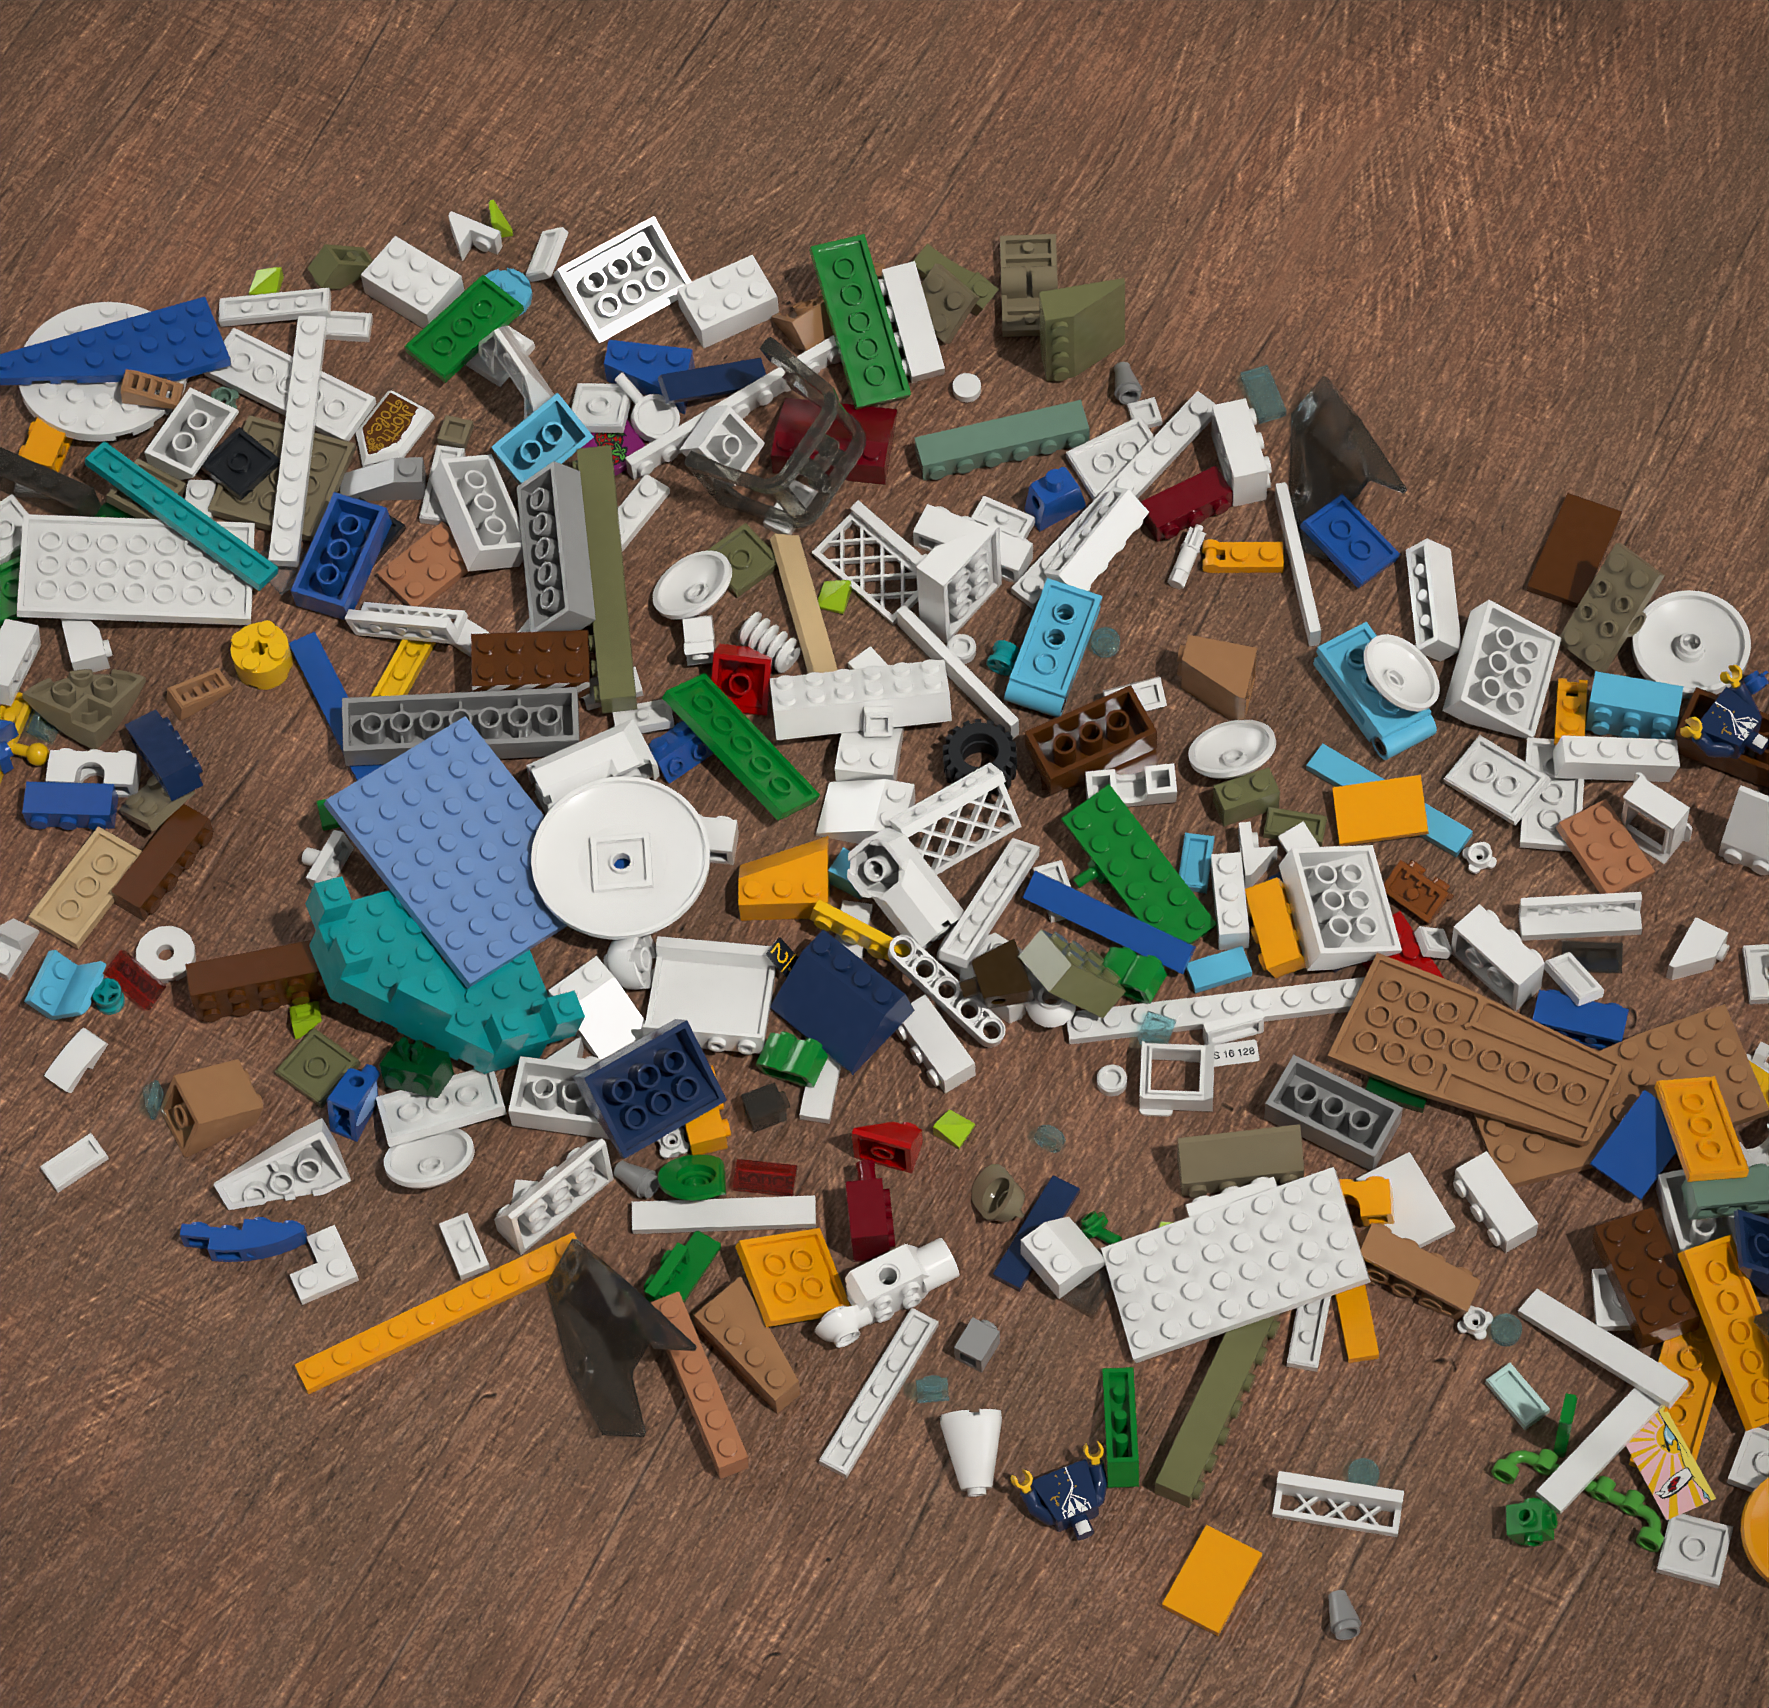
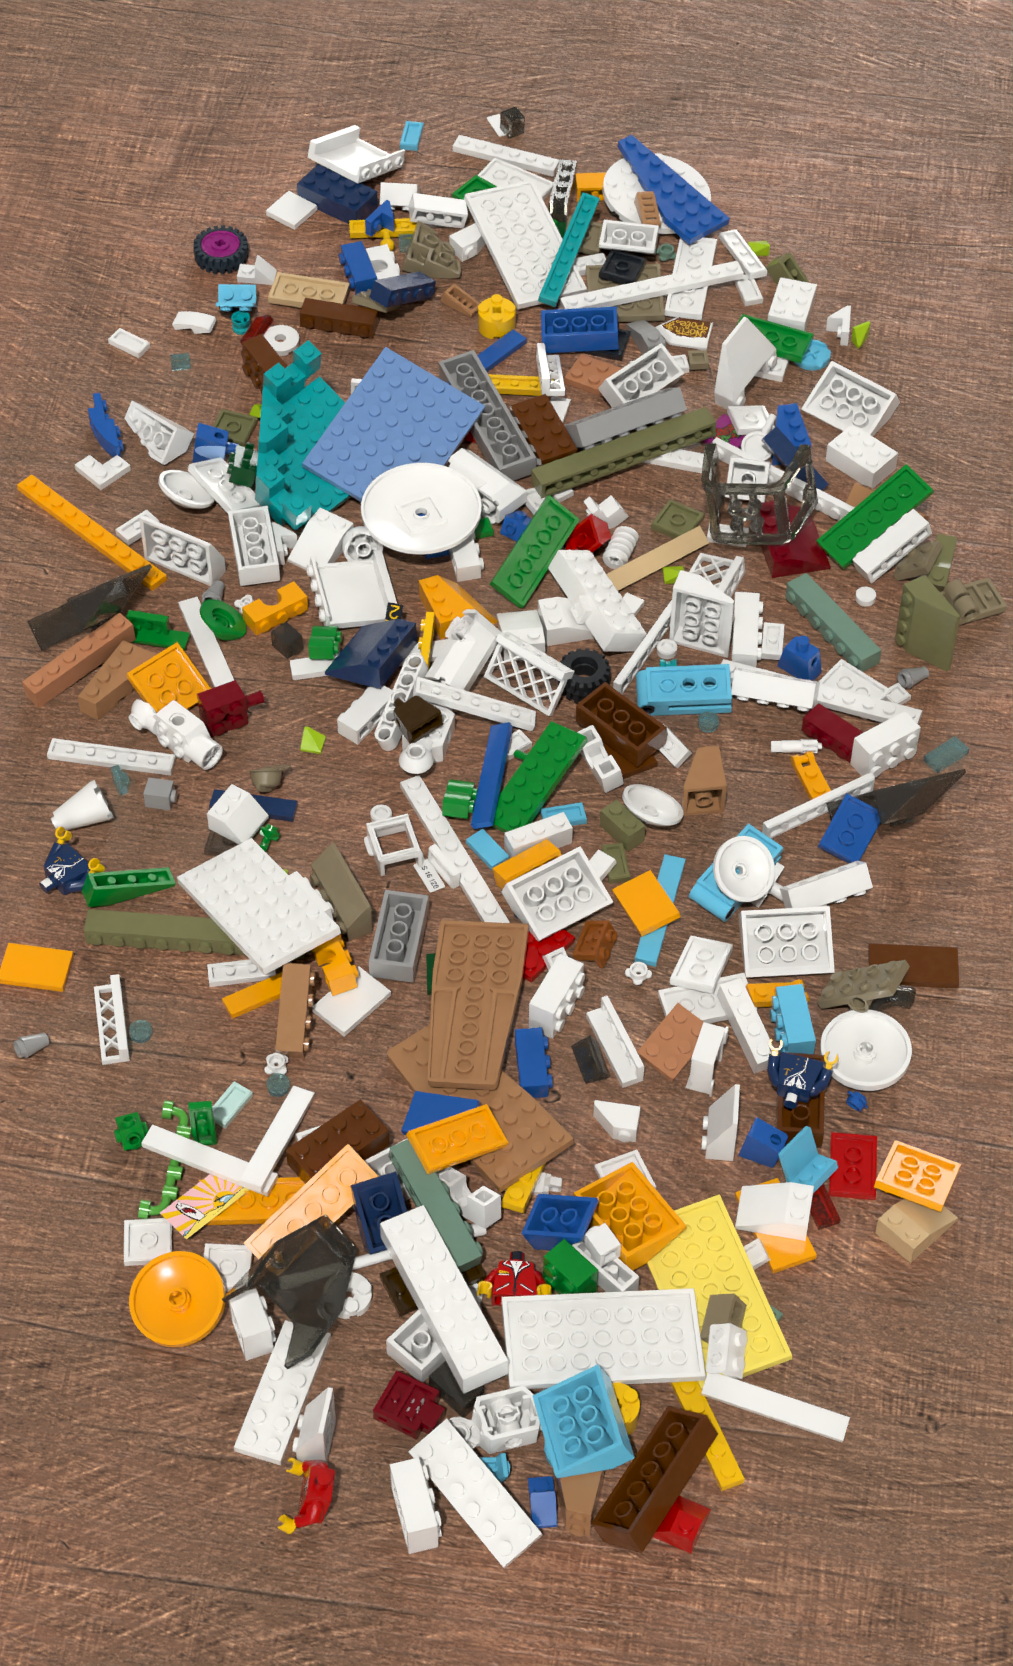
camera: 65 degrees right, 10 degrees down
(210, 1105) = (185, 384): medium nougat slope -> none
(543, 437) = (706, 389): medium azure slope -> none
(546, 254) = (852, 362): white tile -> none
(650, 1087) = (266, 568): dark blue slope -> none
(692, 585) = (640, 498): white dish -> none
(765, 1177) = (240, 658): clear red tile -> none
(888, 1144) = (284, 707): red slope -> none
(1049, 1138) = (322, 791): clear light blue tile -> none
(1072, 972) = (432, 752): olive brick -> none
(1156, 1029) = (423, 824): clear light blue slope -> none
(1255, 859) = (582, 837): white slope -> none
(1495, 1202) = (369, 1049): white brick -> none
(1573, 979) = (559, 1046): white tile -> none

